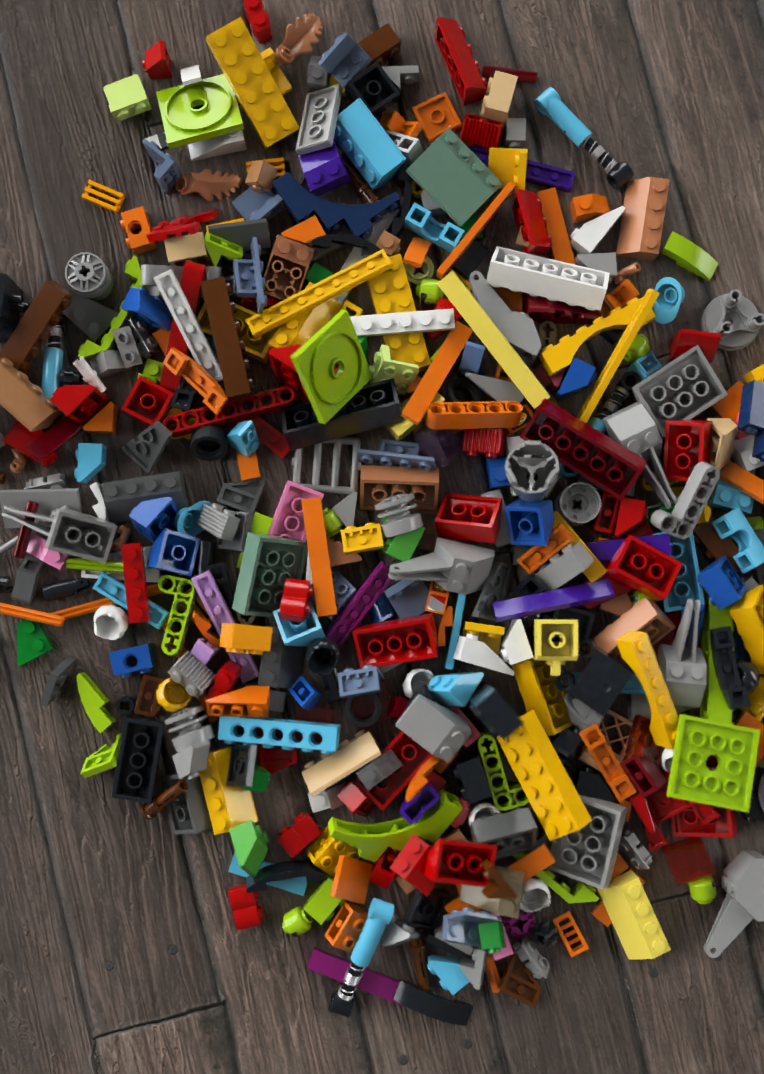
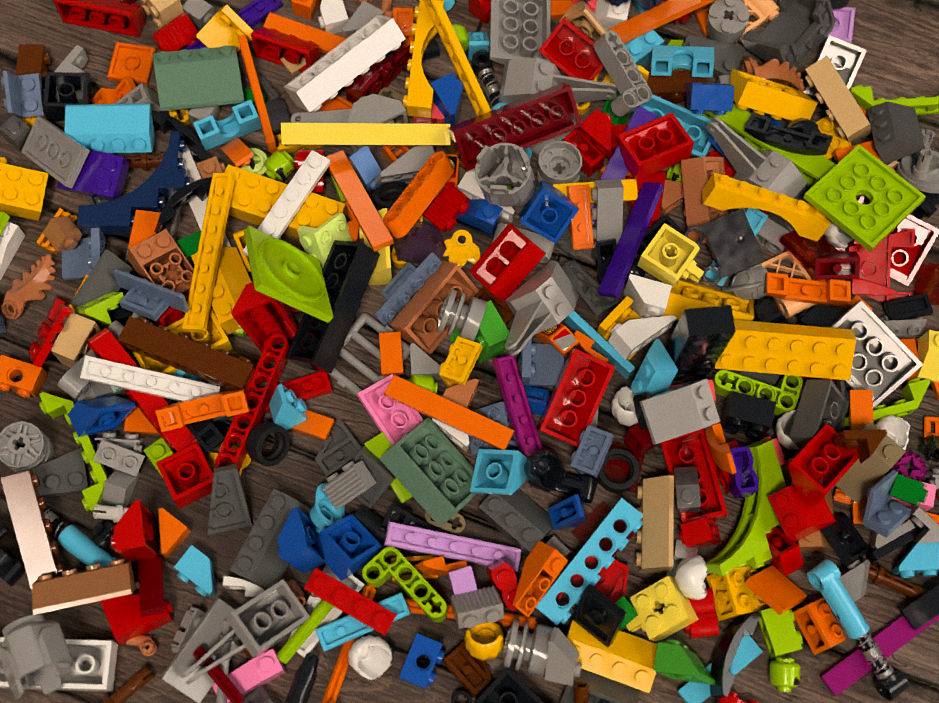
camera: 60 degrees left, 15 degrees down
(248, 637) = (478, 528): light orange brick -> none
(282, 807) = (650, 607): none -> light yellow hinge
(295, 600) = (475, 459): red brick -> none
(314, 814) = (691, 576): none -> white hair
(339, 481) = (391, 353): none -> orange tile
(456, 477) = (464, 252): none -> yellow plate
(650, 848) = (908, 307): none -> black tile

